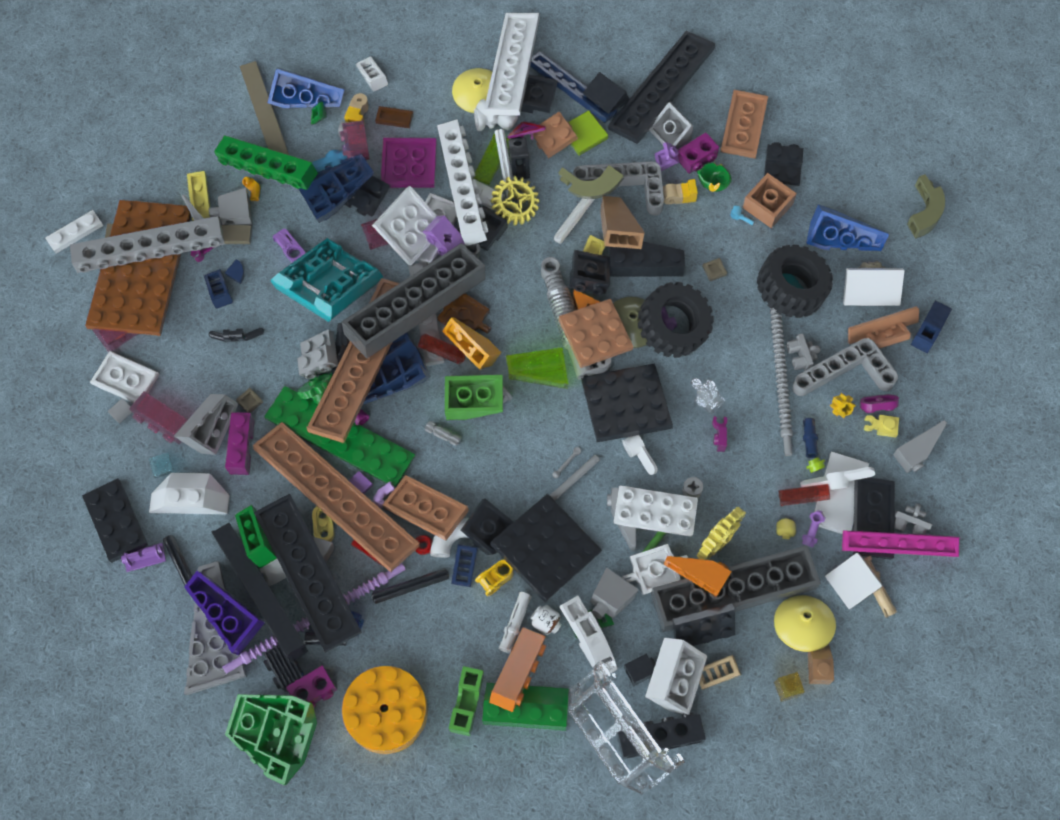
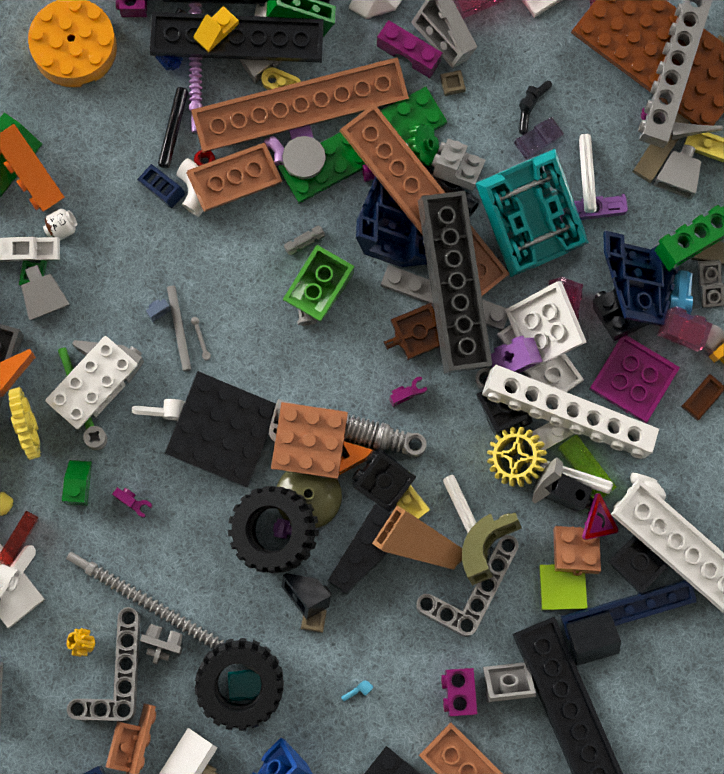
camera: 115 degrees right, 10 degrees up
(220, 299) = (581, 118): dark blue slope -> none
(236, 271) = (605, 141): dark blue tile -> none
(253, 186) = (698, 208): light orange arm -> none
(259, 317) = (538, 138): none -> clear purple slope
(270, 267) = (587, 173): none -> white axle
(310, 150) = (710, 283): none -> light grey slope
(311, 587) = (215, 28): none -> yellow slope
(377, 466) = (304, 157): none -> light grey tile
(441, 348) = (390, 285): clear red piece -> none
(467, 92) = (701, 493): light yellow dish -> none
(467, 701) = (36, 117): bright green arch -> none
(472, 344) = (373, 318): light orange slope -> none
(485, 526) = (177, 220): black plate -> none
(494, 578) = (130, 201): yellow piece -> none
(514, 624) = (72, 191): white pin -> none
(516, 168) = (546, 478): none -> light grey slope
(517, 297) = (403, 394): none -> magenta plate
(539, 367) = (311, 367): clear neon green wedge -> none
(546, 547) = (125, 263): black plate -> none
(566, 503) = (157, 309): none -> sand blue plate
(650, 569) = (47, 347): white plate -> none
(667, 157) = (474, 654): medium lavender bracket -> none
(680, 193) = (424, 640): leg -> none
(703, 276) = (306, 594): none -> black slope
(708, 395) = (179, 515): clear rock -> none
(714, 177) = (418, 688): green hair -> none
(734, 479) = (77, 483): none -> green slope
(769, 200) = (352, 728): nougat brick -> none
(810, 438) = (70, 588): dark blue pin -> none
(815, 465) = (40, 573): lime plate -> none
(880, 402) = (60, 683): magenta plate -> none
(884, 425) = (34, 674): light yellow plate -> none

